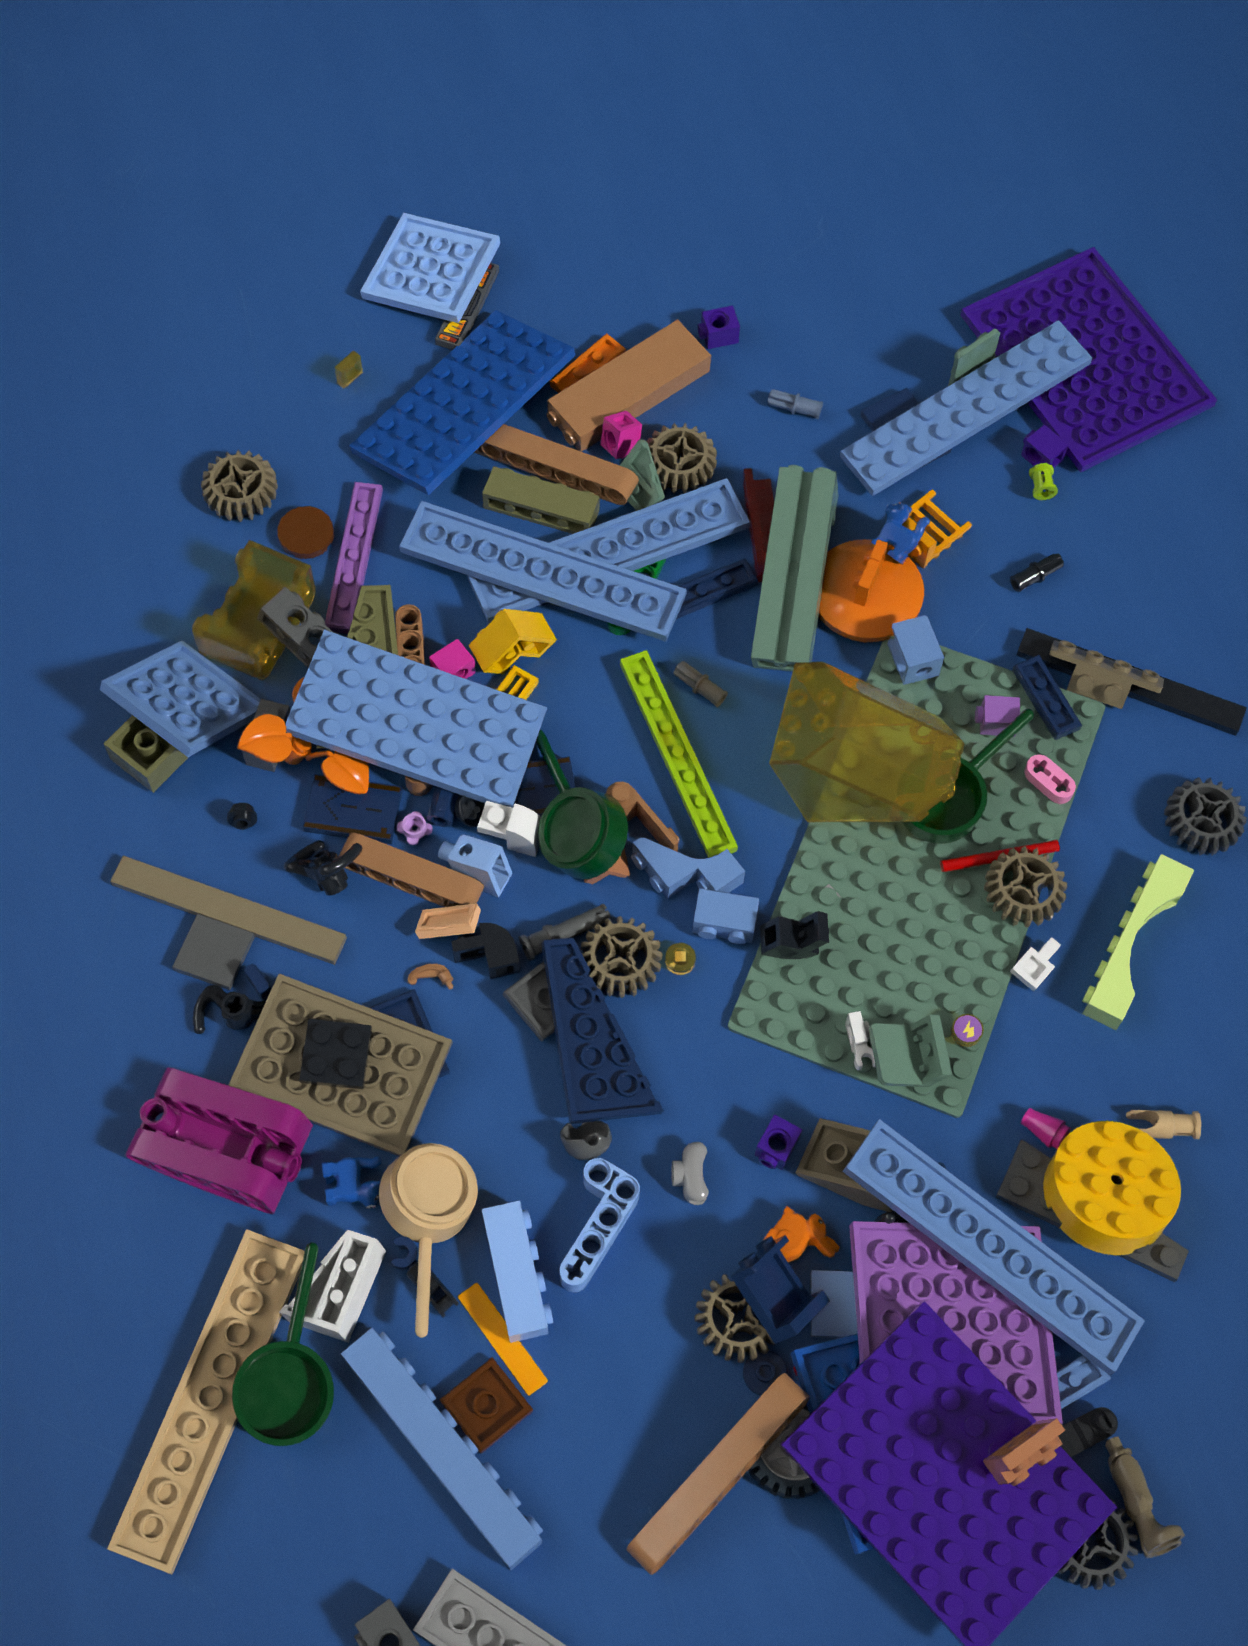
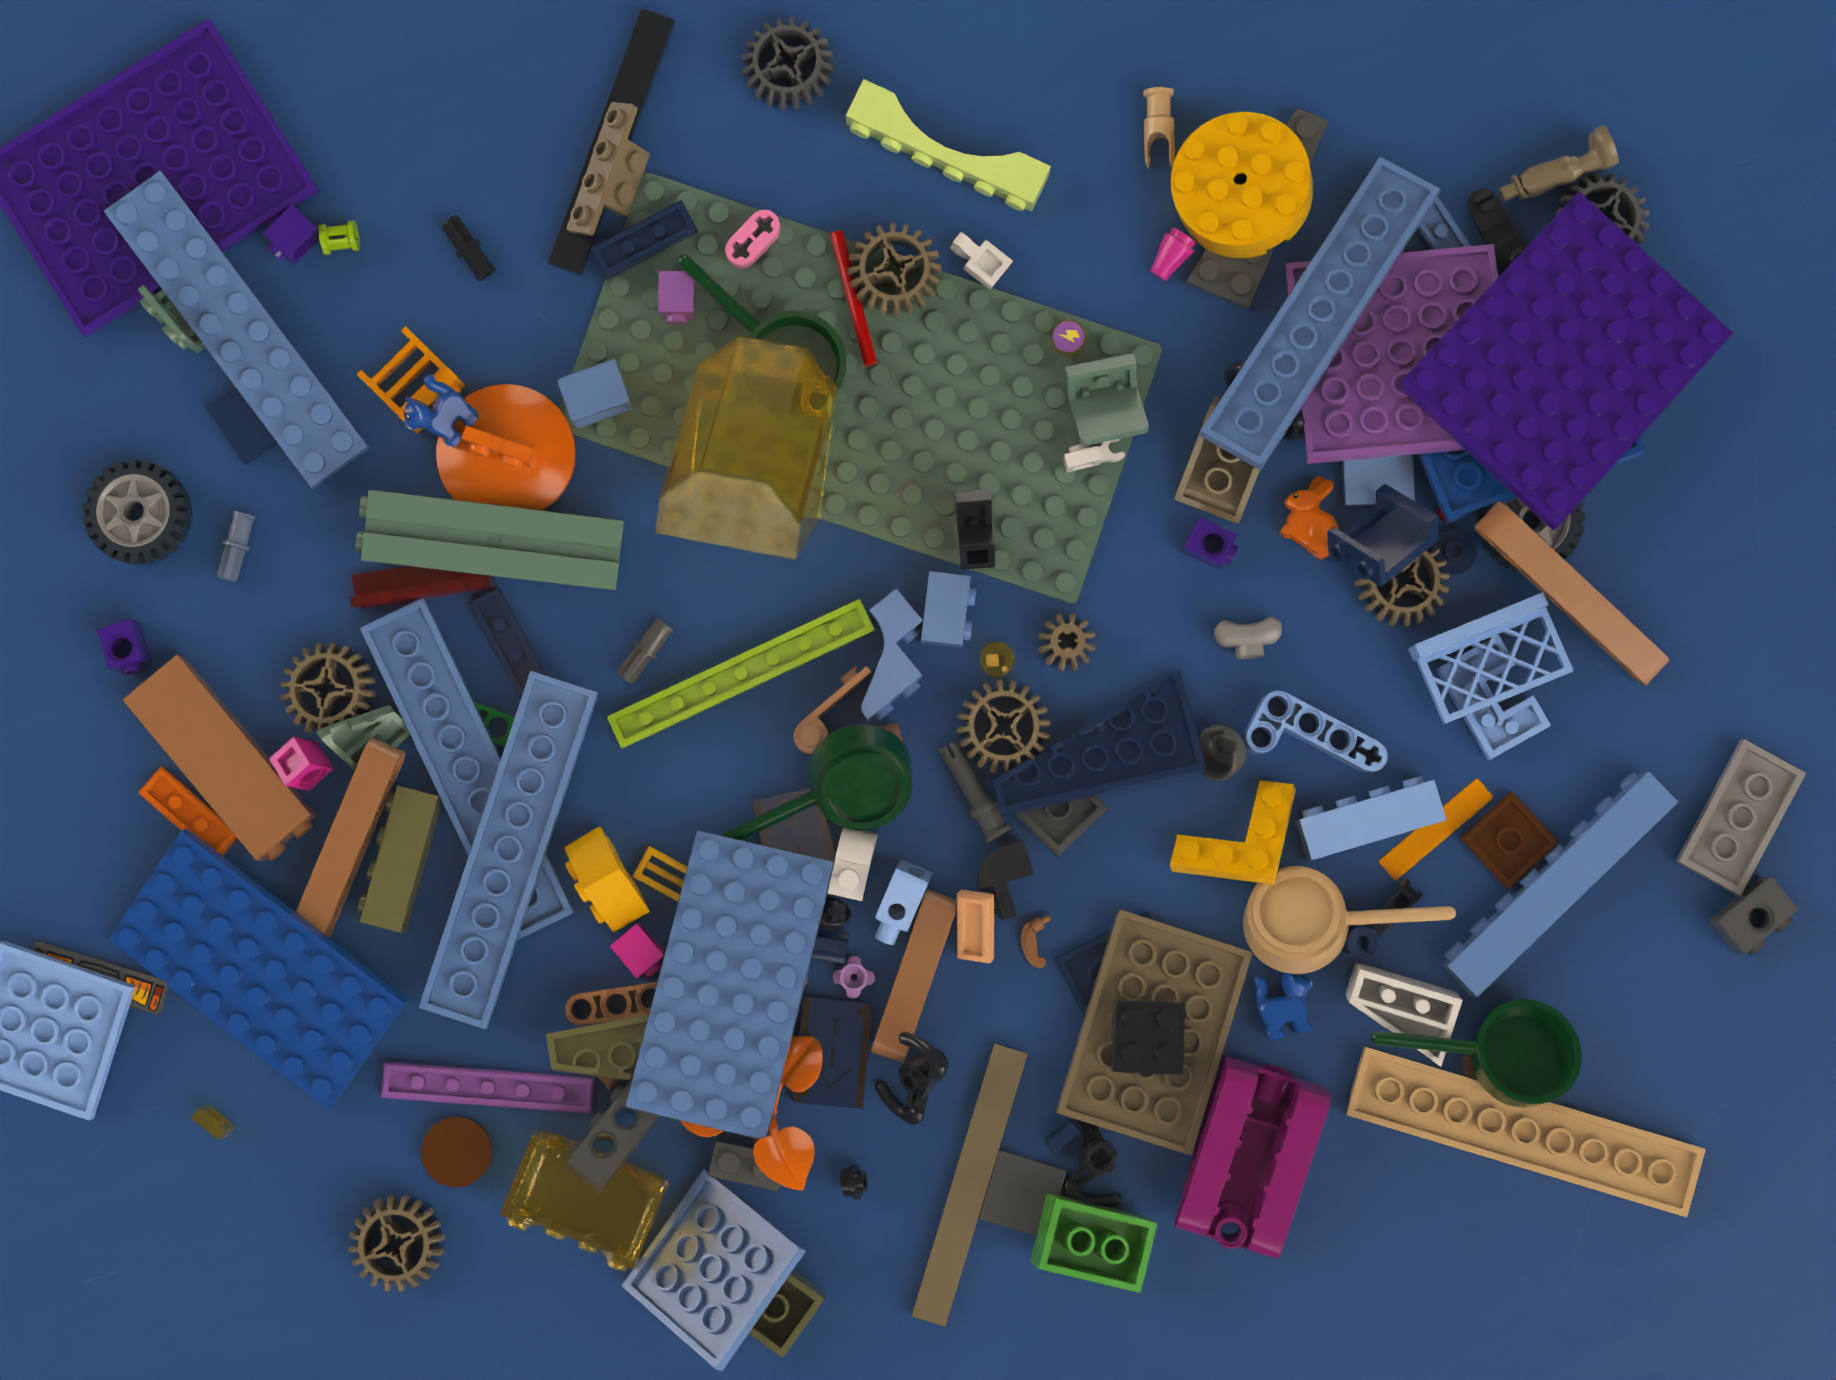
camera: 90 degrees left, 20 degrees up
(162, 997) = (1093, 1242): none -> bright green brick
(490, 1162) = (1249, 861): none -> yellow plate
(636, 1373) = (1492, 727): none -> light blue plate
(688, 1385) = (1482, 629): none -> light blue fence
(692, 1025) = (1065, 630): none -> dark tan gear
(823, 340) = (111, 505): none -> wheel
(1026, 1449) = (1551, 280): nougat plate -> none

